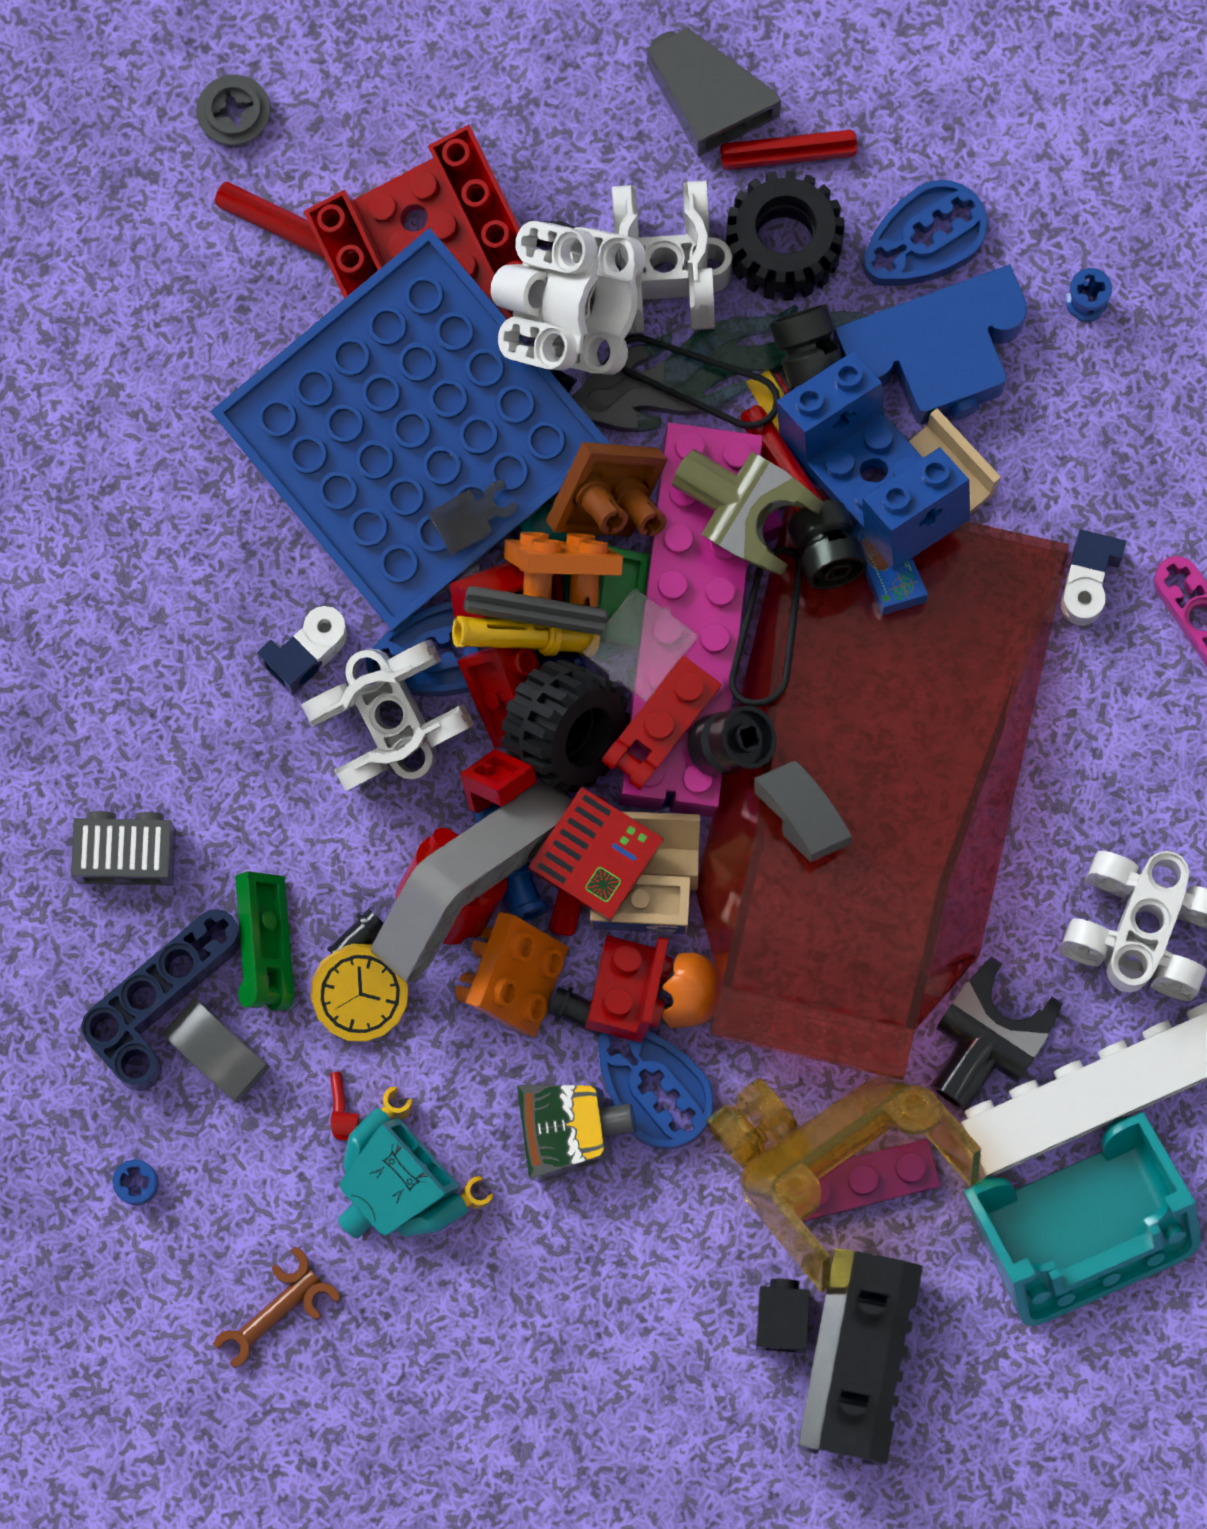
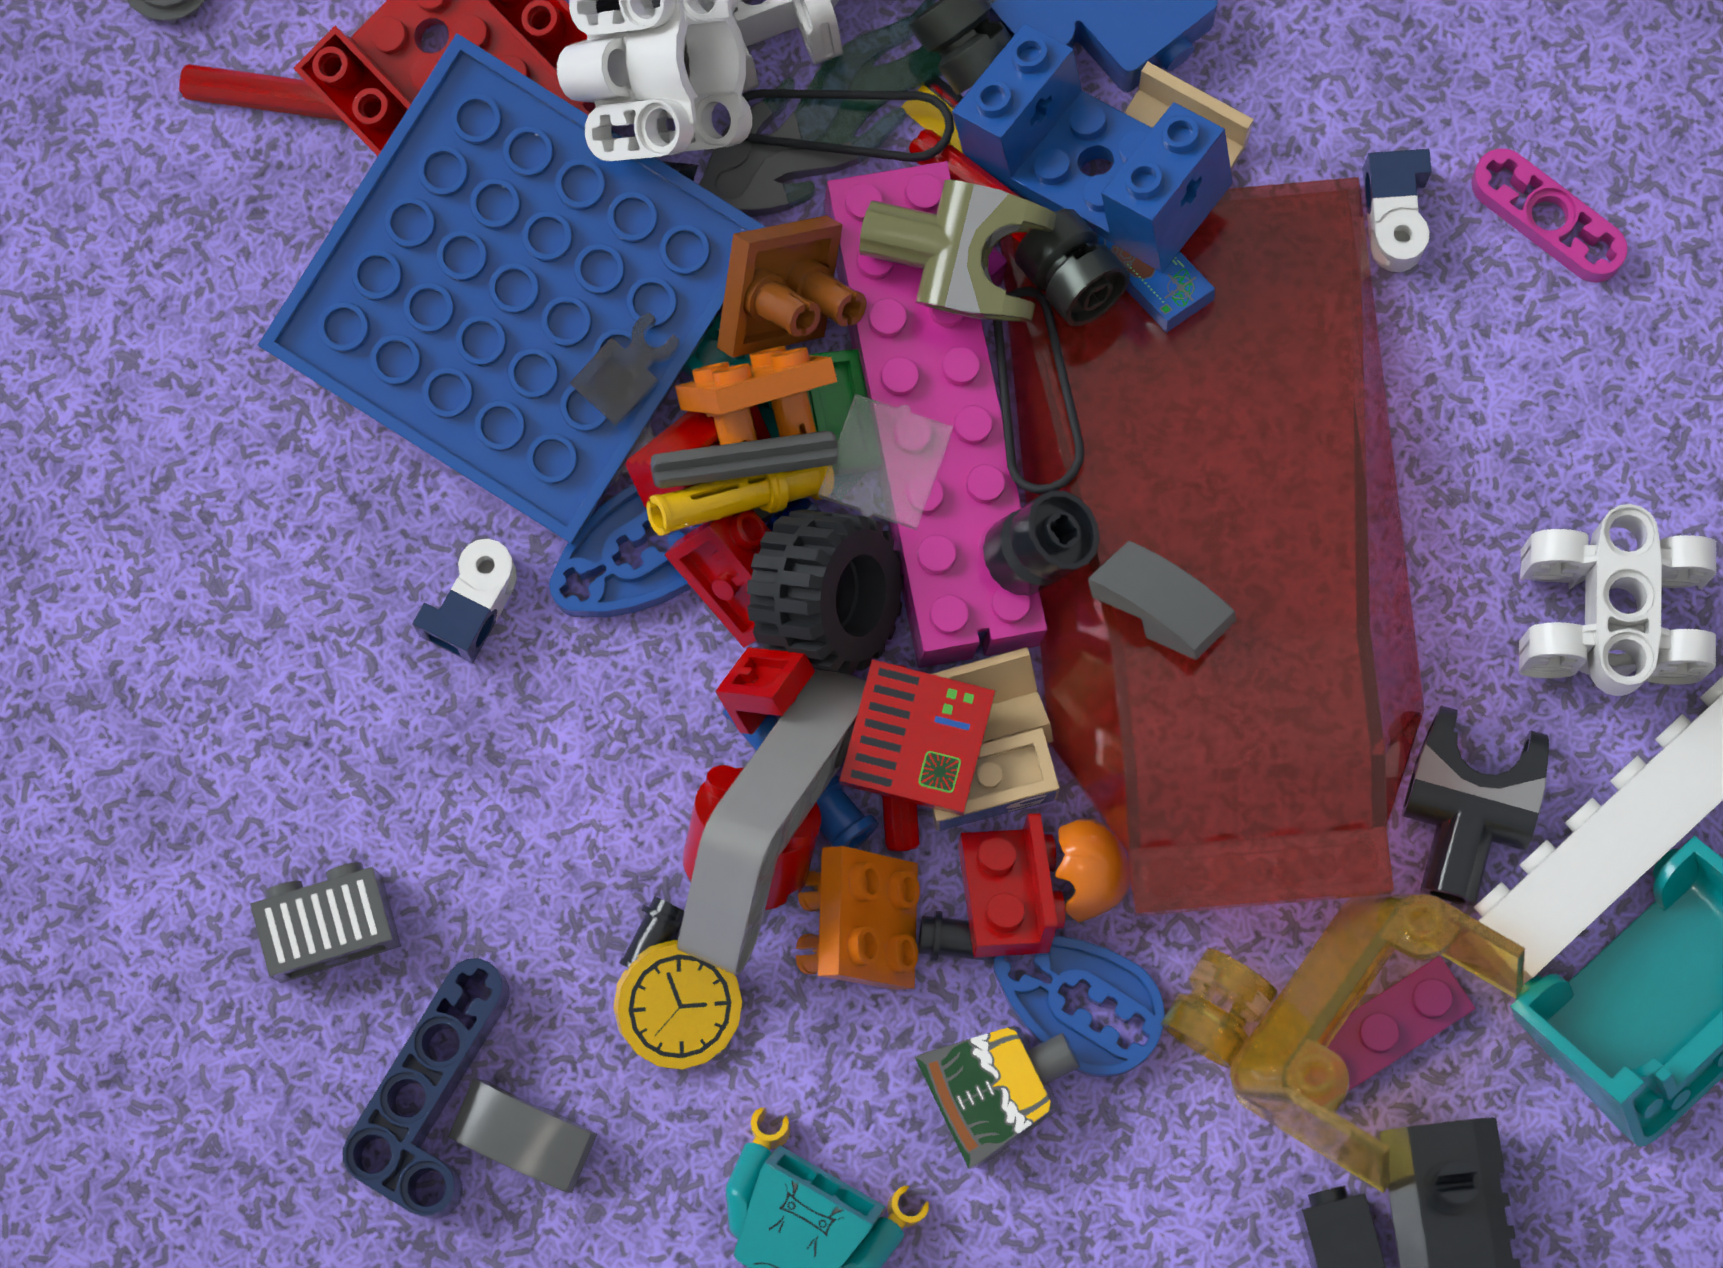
camera: 15 degrees left, 0 degrees up
(264, 941) = (538, 980): green plate -> none
(341, 1122) = (709, 1174): red hand -> none
(392, 742) = (610, 678): white piece -> none
(662, 721) = (945, 546): red plate -> none

